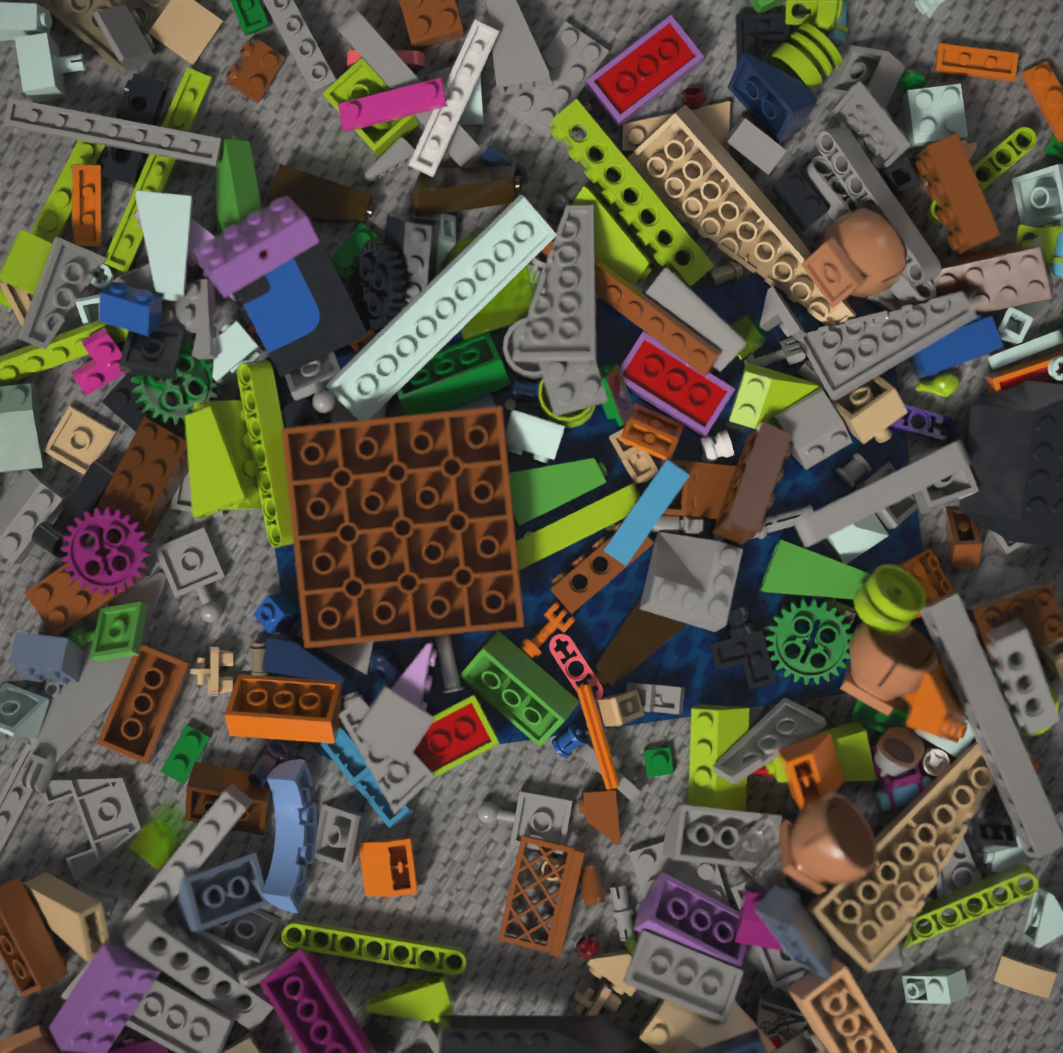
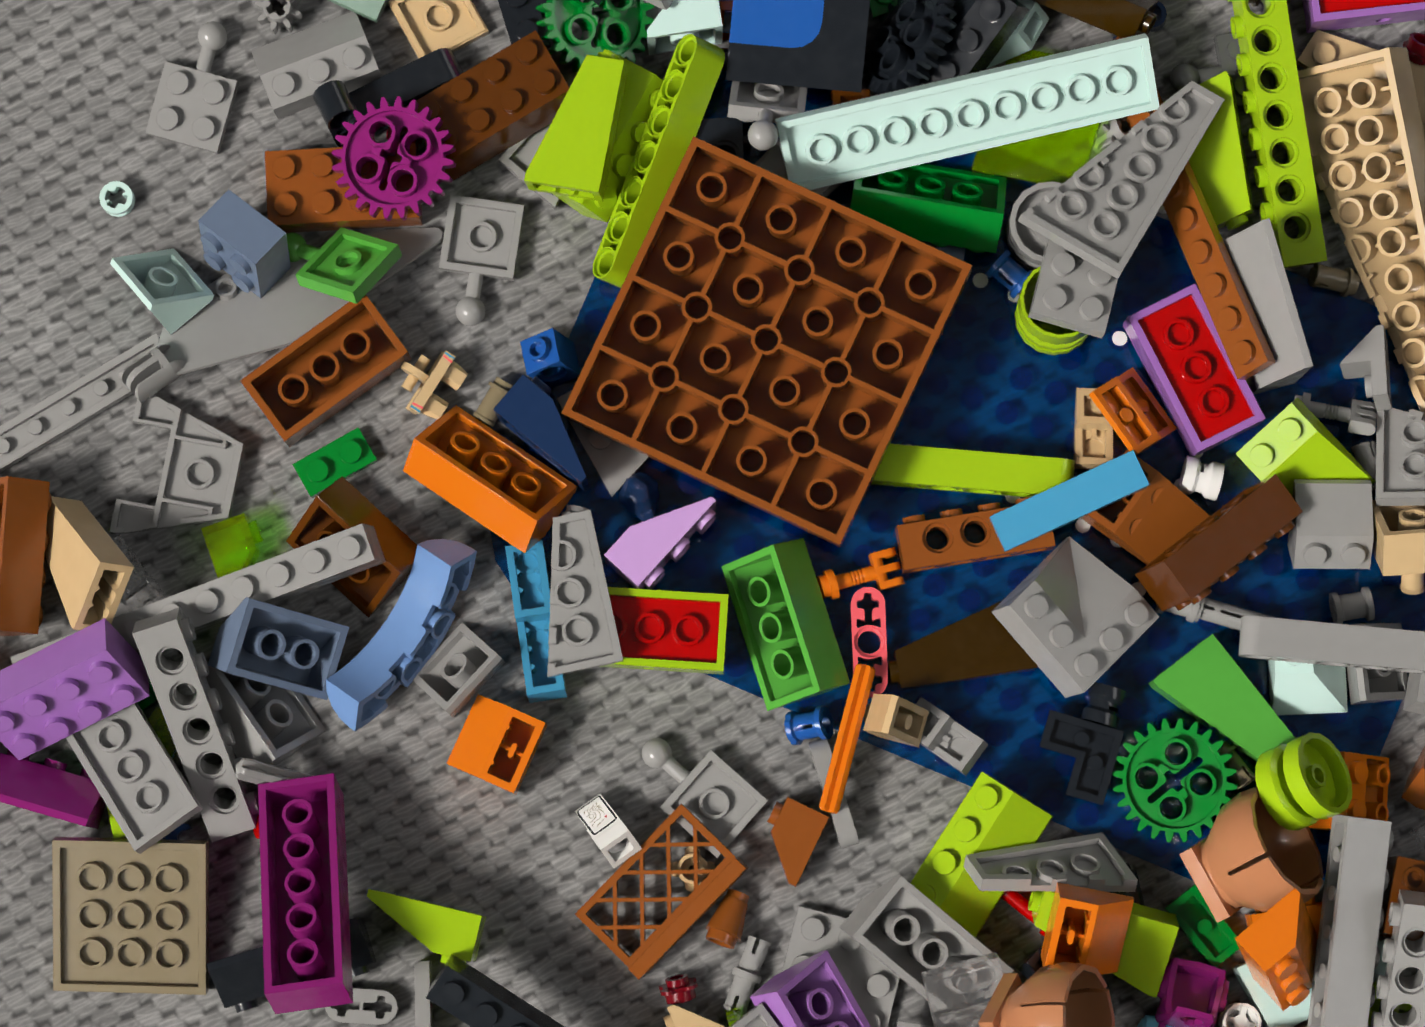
camera: 30 degrees right, 5 degrees down
(273, 755) = (440, 525): dark blue bar -> none
(361, 950) = (402, 825): lime beam -> none
(394, 725) = (613, 568): light grey slope -> none
(447, 663) = (718, 540): light grey pin -> none
(487, 878) = (607, 830): none -> white leg
(533, 436) = (987, 331): light aqua slope -> none
(549, 487) = (973, 406): bright green slope -> none
(618, 399) = (1114, 350): panel -> none
(658, 762) = (900, 818): green plate -> none
(673, 525) = (1109, 551): light grey bar -> none
(748, 332) = (1321, 376): clear neon green tile -> none
(898, 751) = (1203, 978): light grey piece -> none

